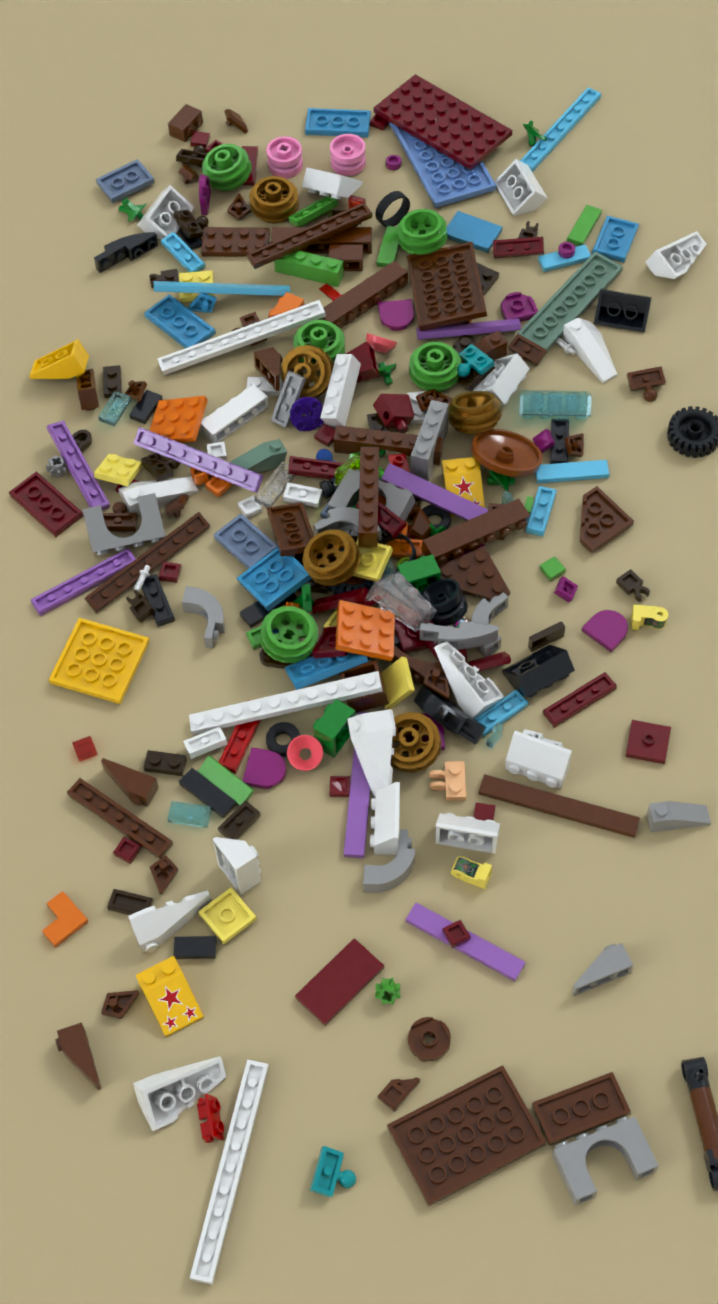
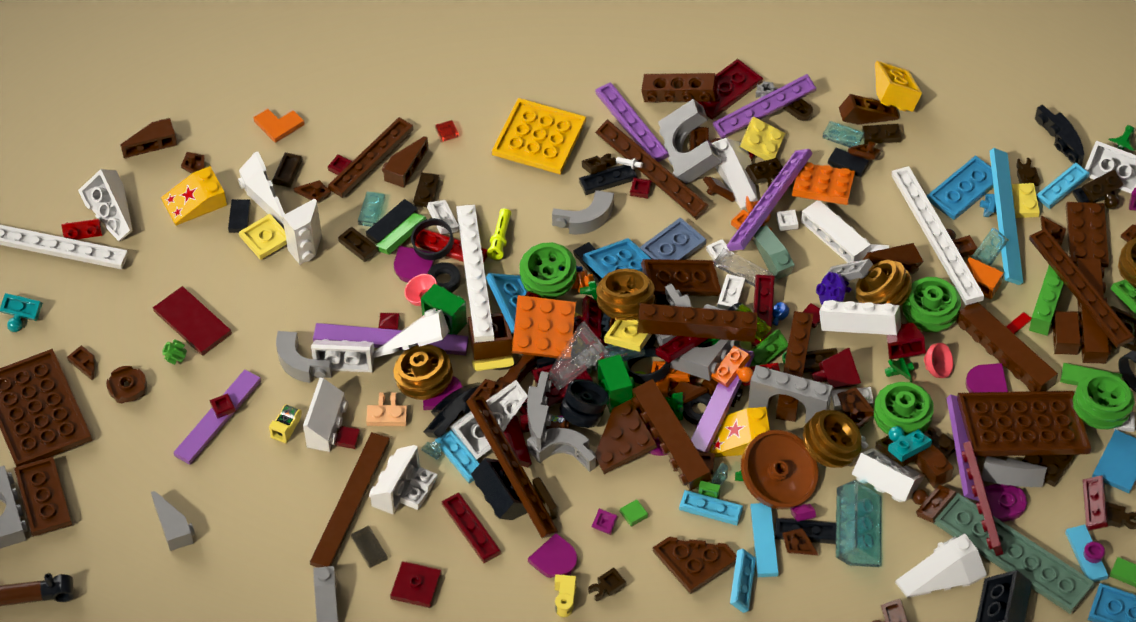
camera: 90 degrees right, 5 degrees down
(49, 562) = (679, 87): none -> reddish brown brick
(233, 263) = (1054, 229): none -> reddish brown piece
(237, 690) = (498, 240): none -> neon yellow pin
(242, 726) = (431, 222): none -> black tyre
(258, 300) = (990, 247): none -> clear light blue plate
(405, 479) = (732, 366): none -> orange plate
(494, 298) = (1013, 472): none -> light grey slope
(523, 655) = (512, 467): none -> reddish brown tile
(533, 311) = (983, 505): none -> dark red plate
(609, 785) = (369, 546): none -> clear smoke tile
(618, 483) = (742, 580): none -> medium azure tile

